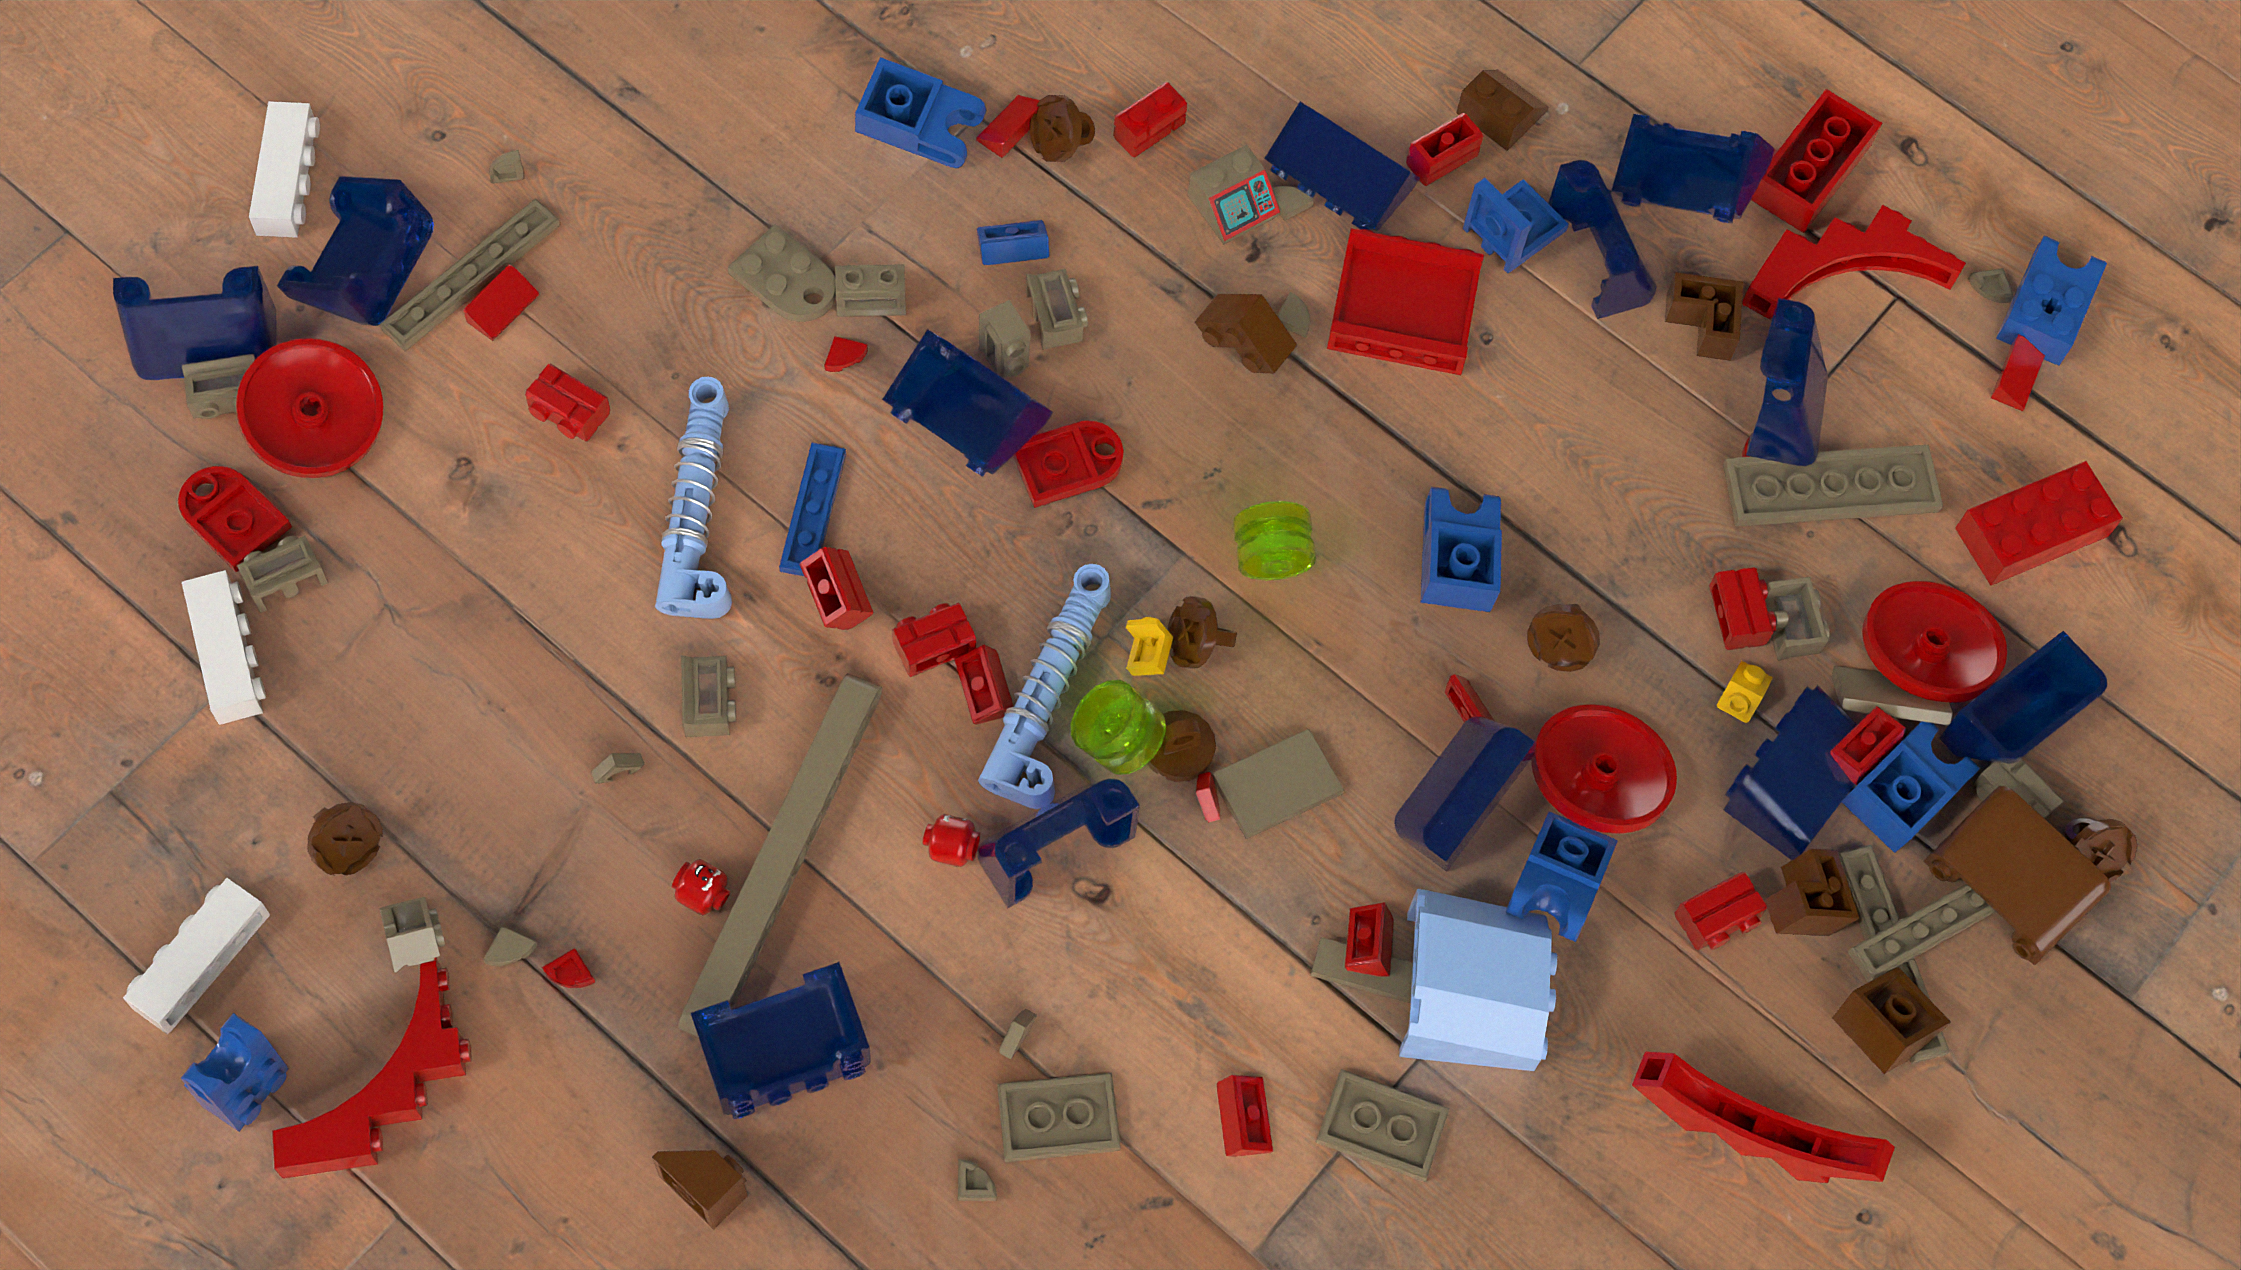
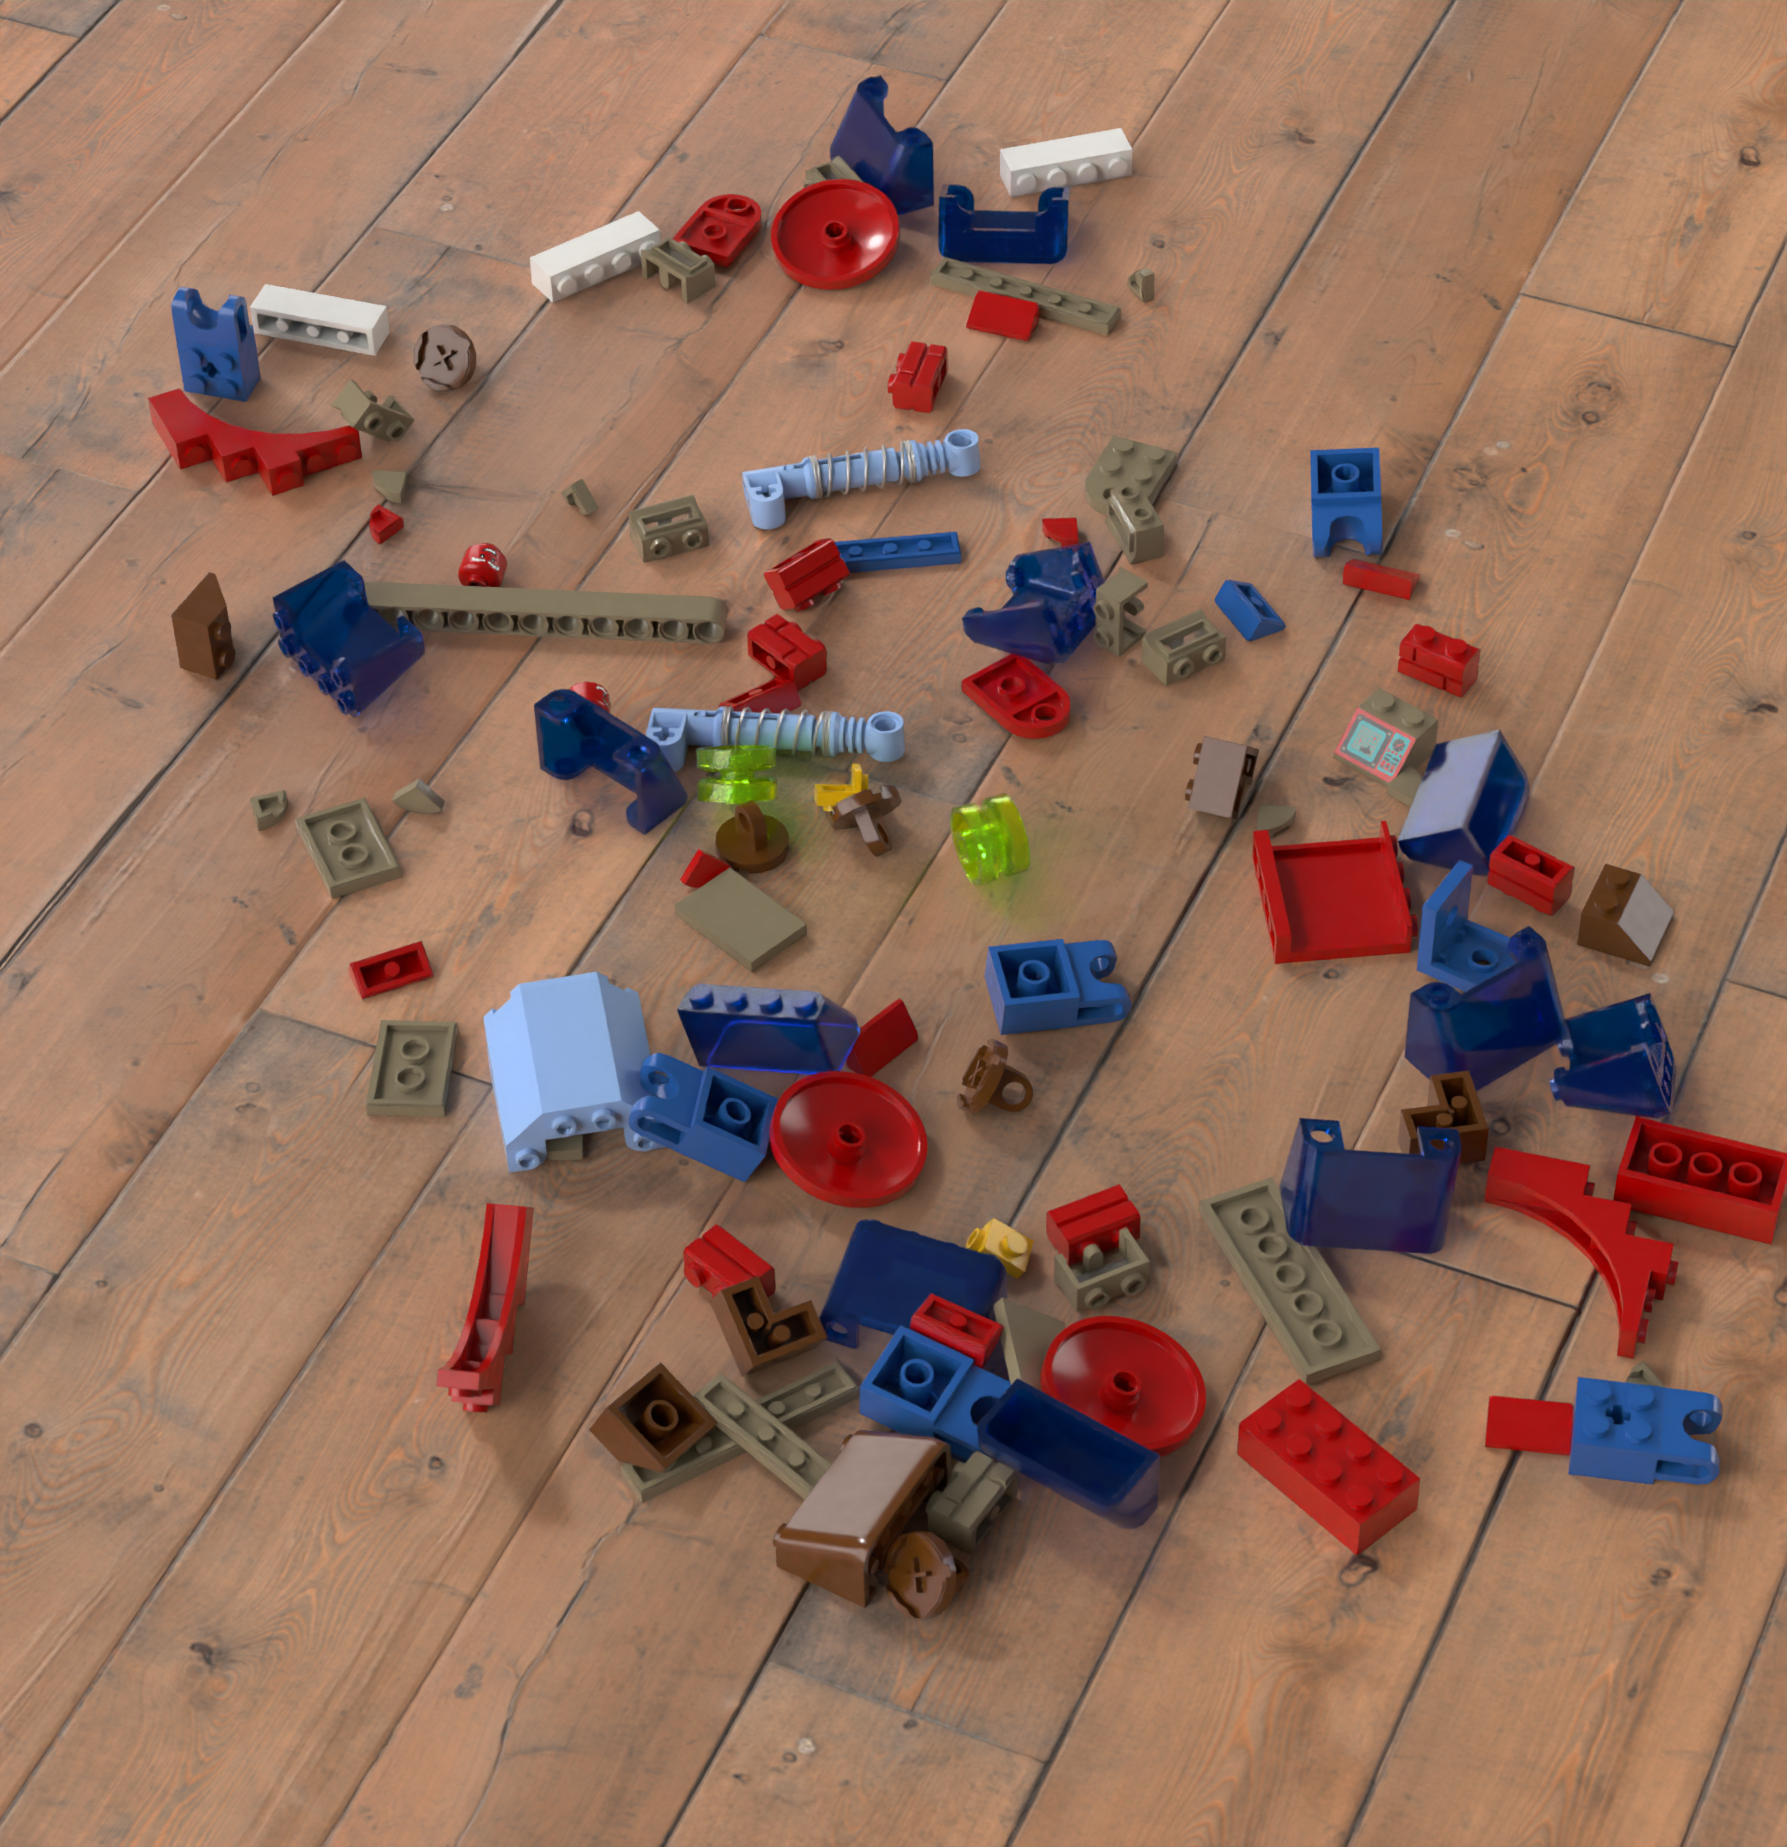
camera: 80 degrees right, 20 degrees down
(1058, 128) = (1385, 597): reddish brown tile -> none

